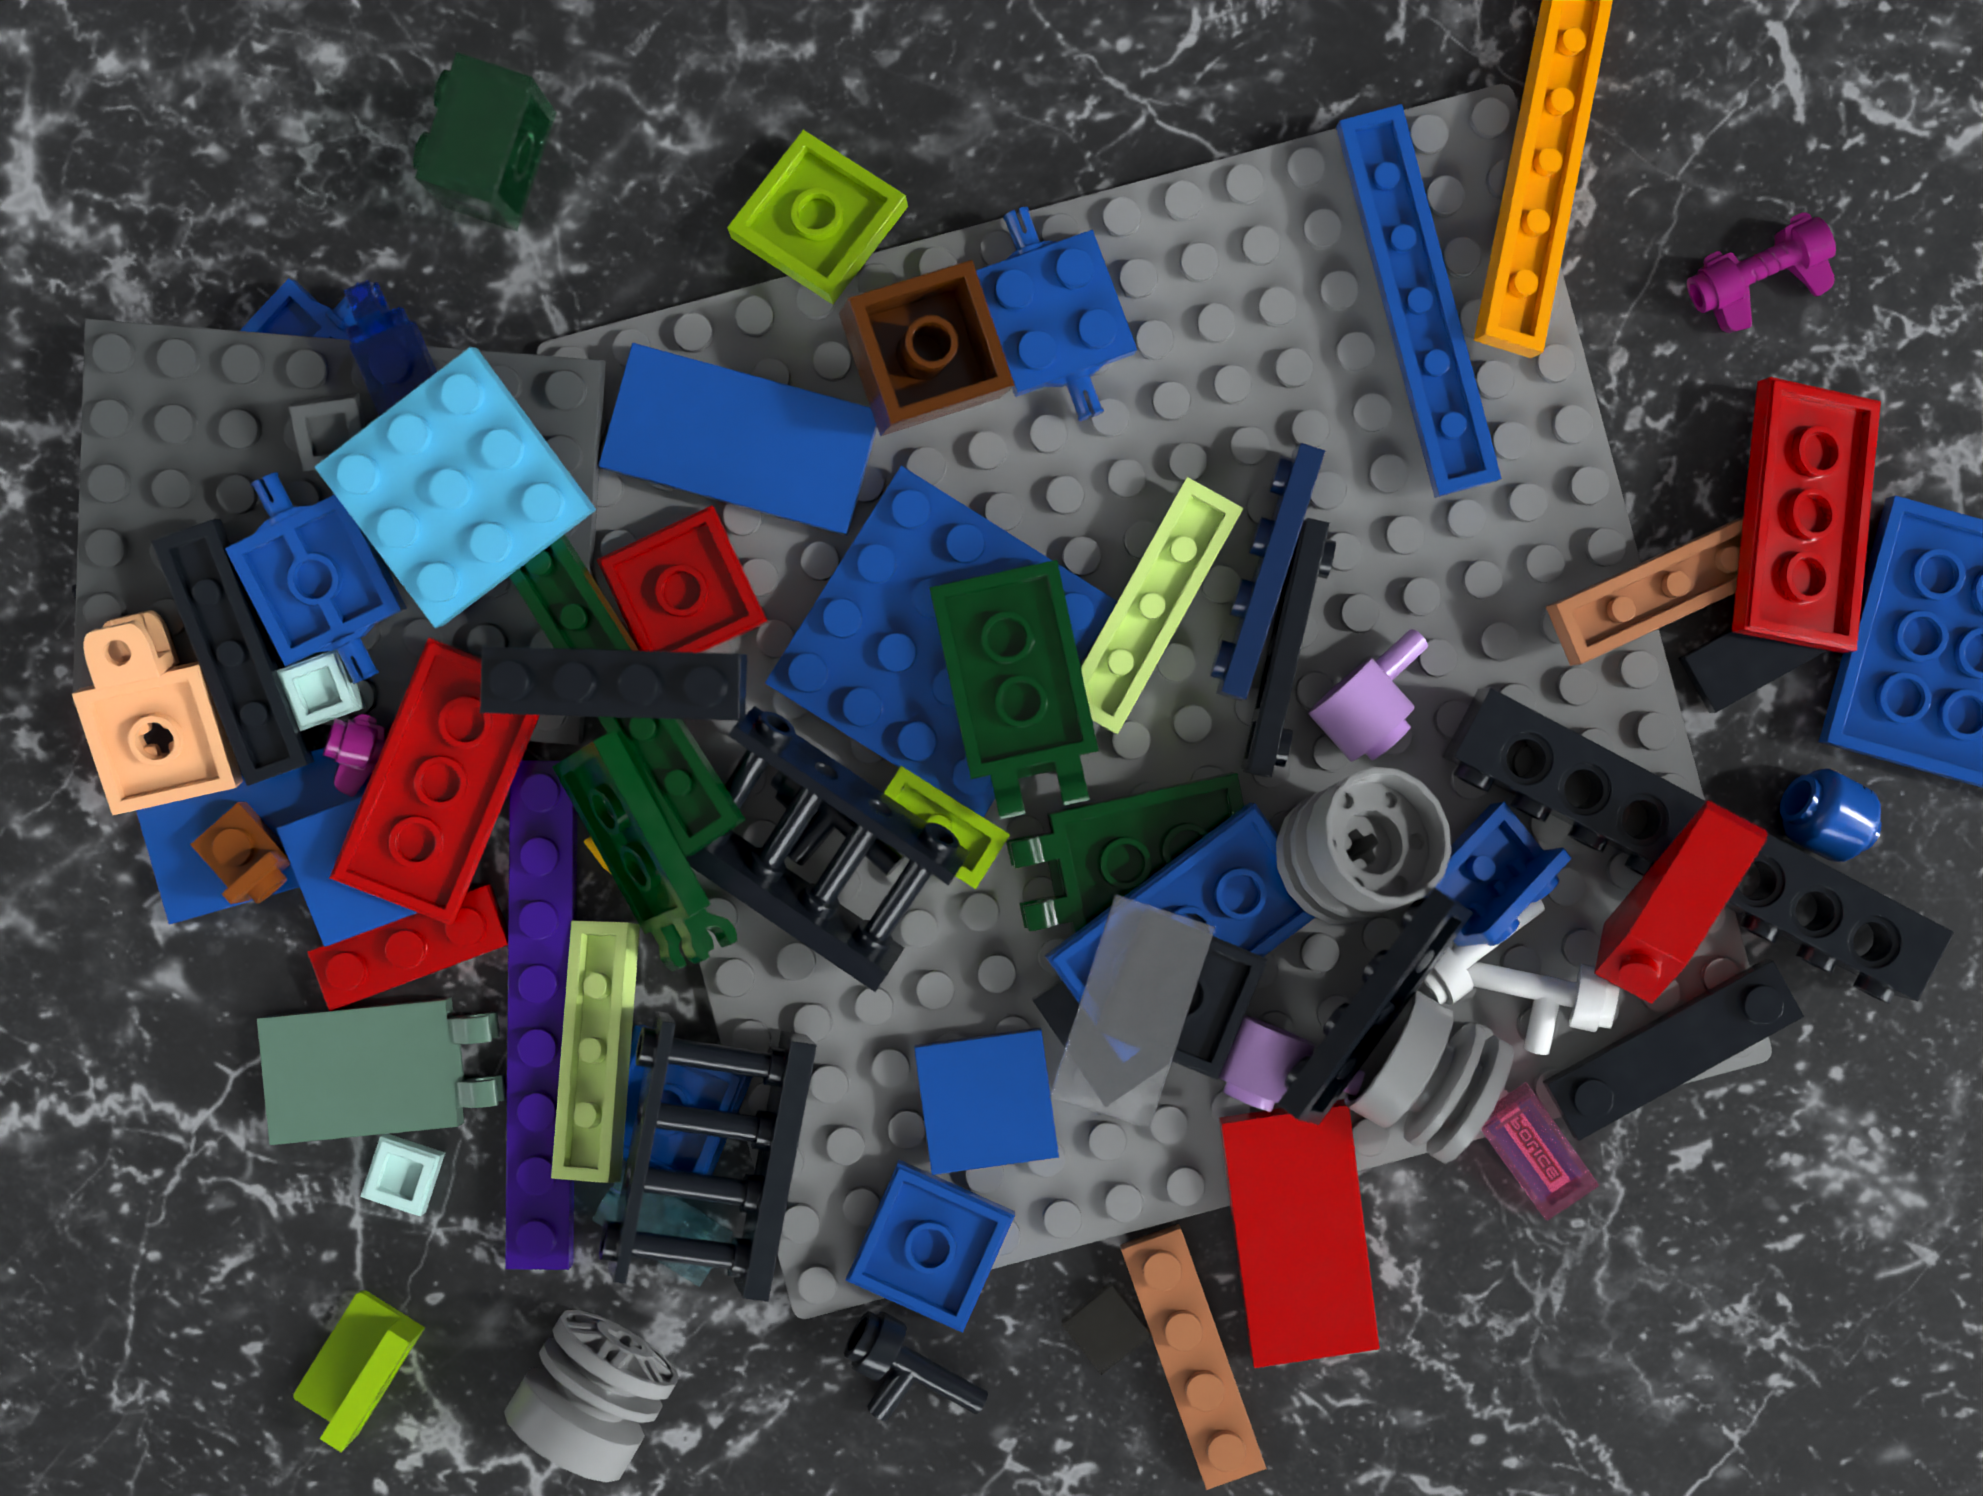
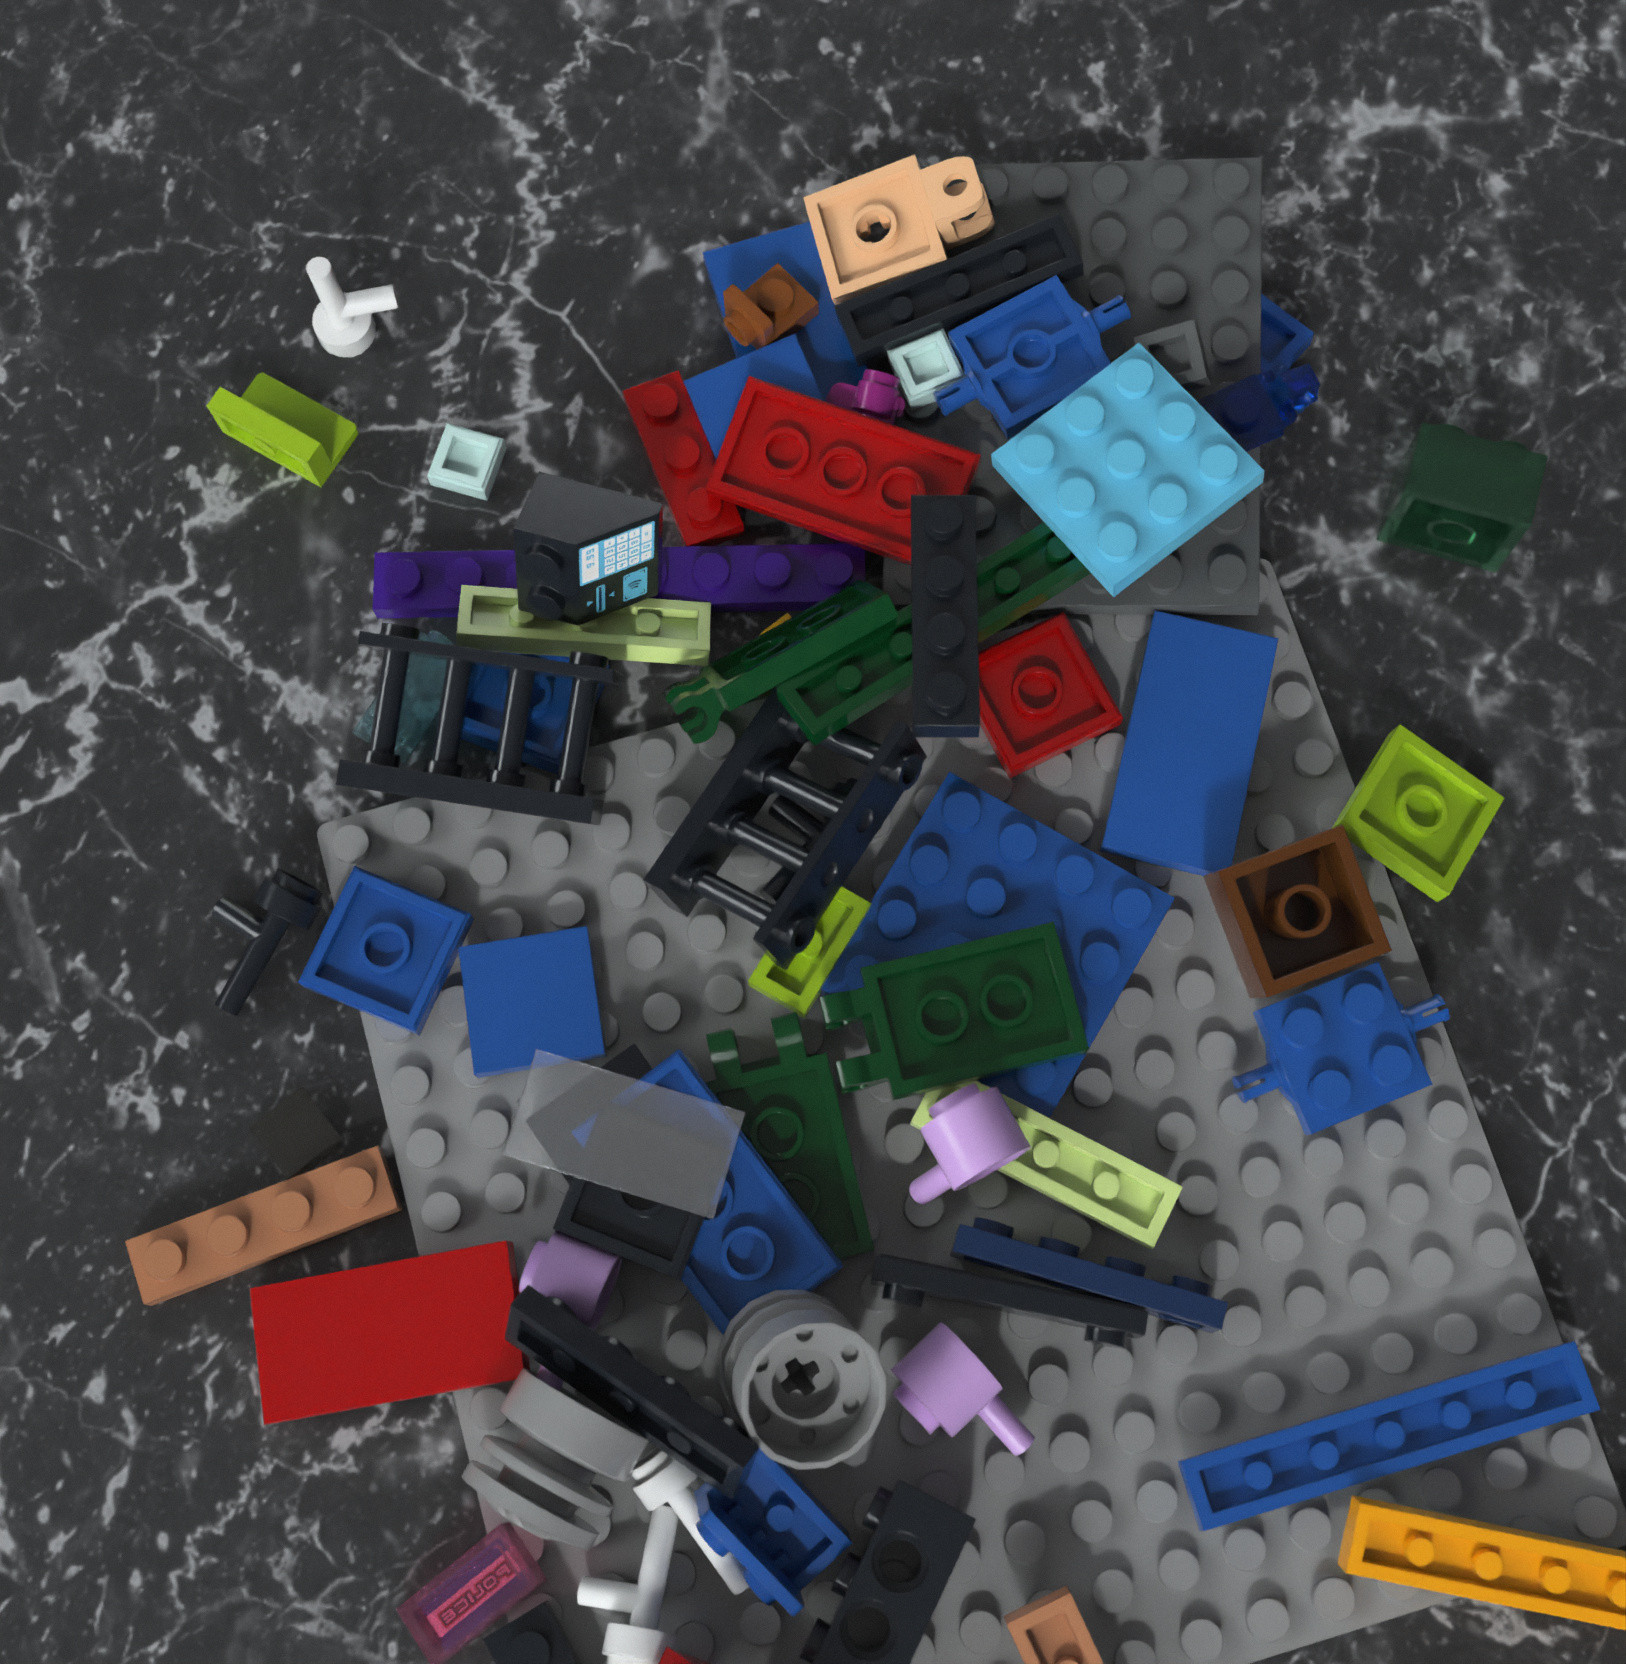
camera: 95 degrees right, 15 degrees down
(238, 1307) = (345, 319): none -> white piece
(372, 1070) = (565, 412): sand green tile -> none
(528, 1052) = (585, 550): none -> black slope
(590, 1396) = (249, 626): light grey wheel -> none
(1145, 680) = (970, 1139): none -> lavender piece

